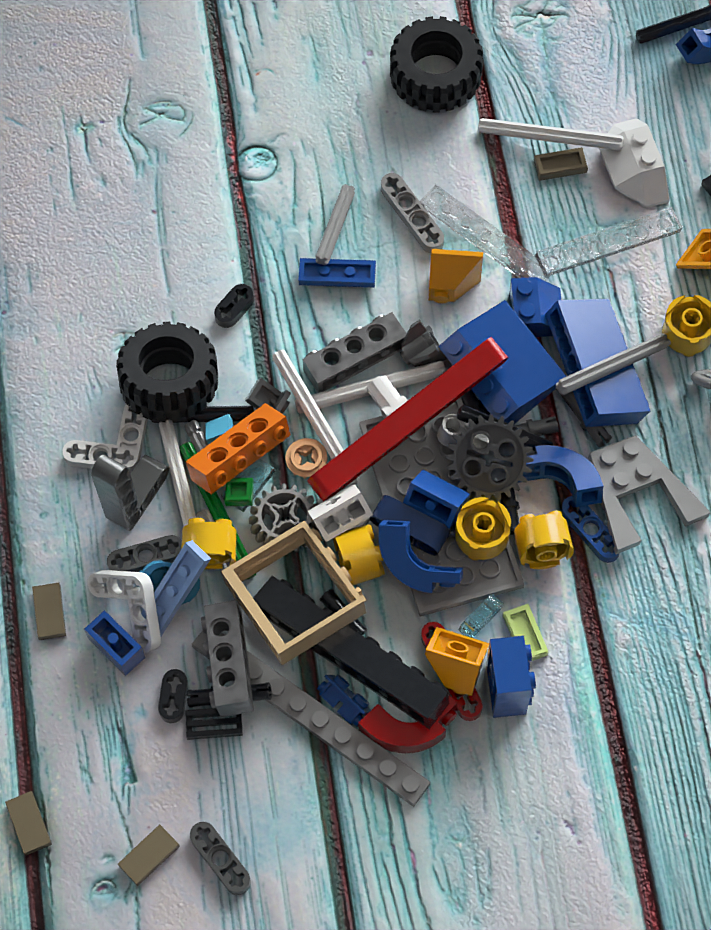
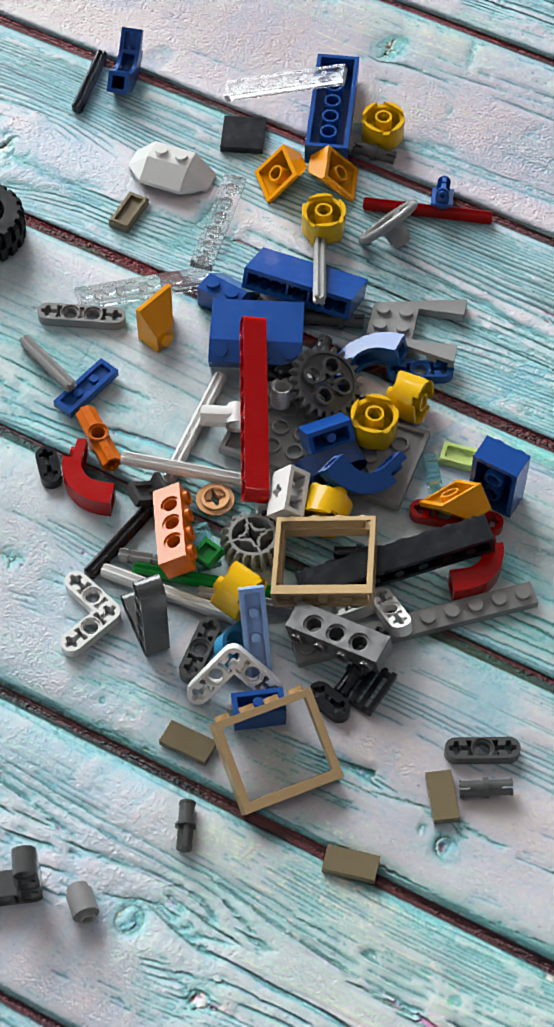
camera: 55 degrees left, 10 degrees down
(58, 725) = (249, 711): none -> tan window
(161, 346) = (76, 555): black tyre -> none
(182, 886) = (486, 787): none -> dark grey pin
(217, 427) = (143, 537): medium azure tile -> none
(233, 336) = (86, 492): none -> red arch
(296, 671) = (390, 603): none -> white beam
(299, 309) = (98, 438): none -> orange piece
(337, 690) = (433, 591): blue hinge -> none
(350, 364) = (163, 401): flat silver brick -> none
(421, 346) = (196, 373): dark grey brick -> none
(550, 134) = (104, 198): white axle -> none

